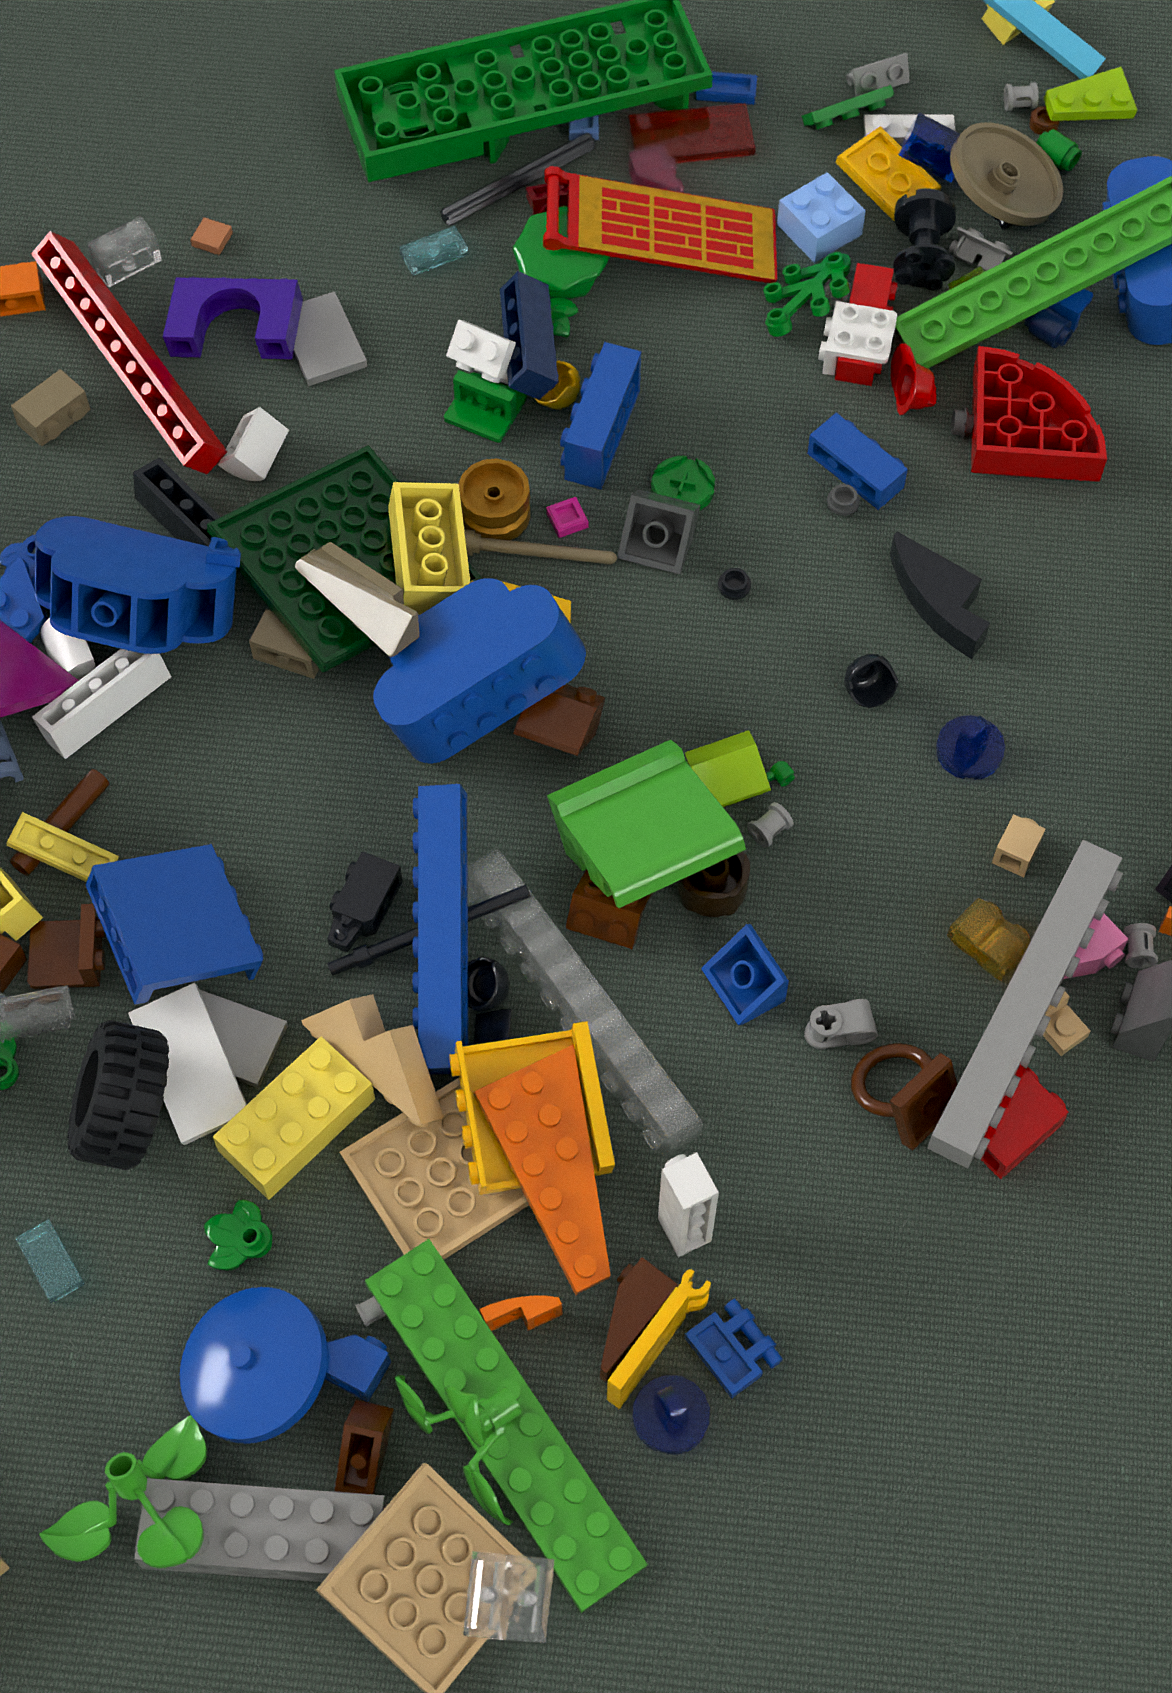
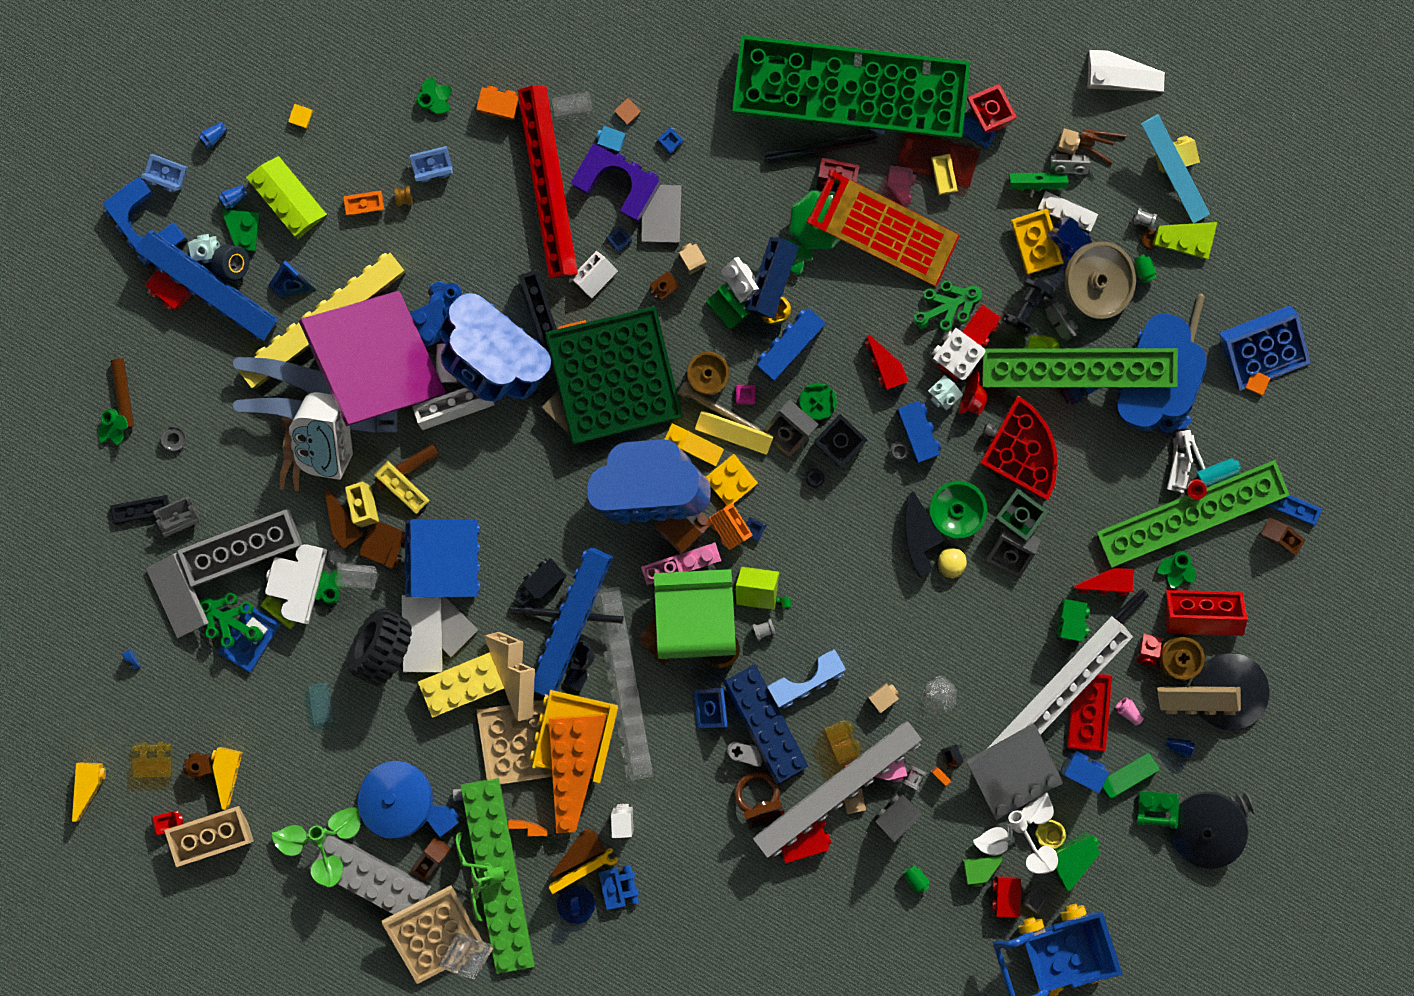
camera: 20 degrees right, 25 degrees up
(51, 408) = (492, 200): dark tan brick -> none
(200, 264) = (611, 139): none -> dark azure brick
(222, 554) = (545, 358): blue tile -> none
(233, 1233) = (410, 727): green plate -> none
(272, 392) = (619, 239): none -> dark blue tile
(292, 248) = (670, 140): none -> blue tile
(362, 596) = (605, 417): wedge -> none
(370, 420) = (664, 286): none -> reddish brown brick
(398, 368) = (692, 258): none -> tan slope
(428, 542) = (657, 396): light yellow brick -> none
(434, 250) = (750, 178): clear light blue plate -> none
(577, 568) = (734, 432): none -> light yellow tile
(609, 638) = (731, 480): none -> yellow plate
(615, 748) = (683, 562): none -> bright pink slope
(636, 695) = (730, 526): none -> orange brick
(676, 692) = (756, 528): none -> dark blue tile
(711, 143) = (944, 174): none -> light yellow tile
(737, 41) = (992, 109): none -> red slope
(746, 512) = (840, 441): none -> black brick
(763, 395) = (890, 369): none -> red slope
(820, 217) = (980, 257): light blue brick -> none
(850, 963) = (765, 724): none -> dark blue plate
(854, 899) = (828, 666): none -> light blue arch
(861, 45) = (1068, 142): none -> tan brick
(868, 393) = (944, 393): none -> light aqua brick
(870, 680) = (855, 571): black hair -> none
(888, 37) = (1089, 138): none -> reddish brown plant
(970, 747) = (889, 629): clear blue tile -> none
(982, 519) = (971, 504): none -> green dish
(1011, 615) = (952, 562): none -> light yellow hair
(1079, 494) = (1021, 515): none -> dark green slope
(1094, 559) = (1012, 552): none -> dark grey slope
(1106, 804) = (939, 695): none -> clear hair

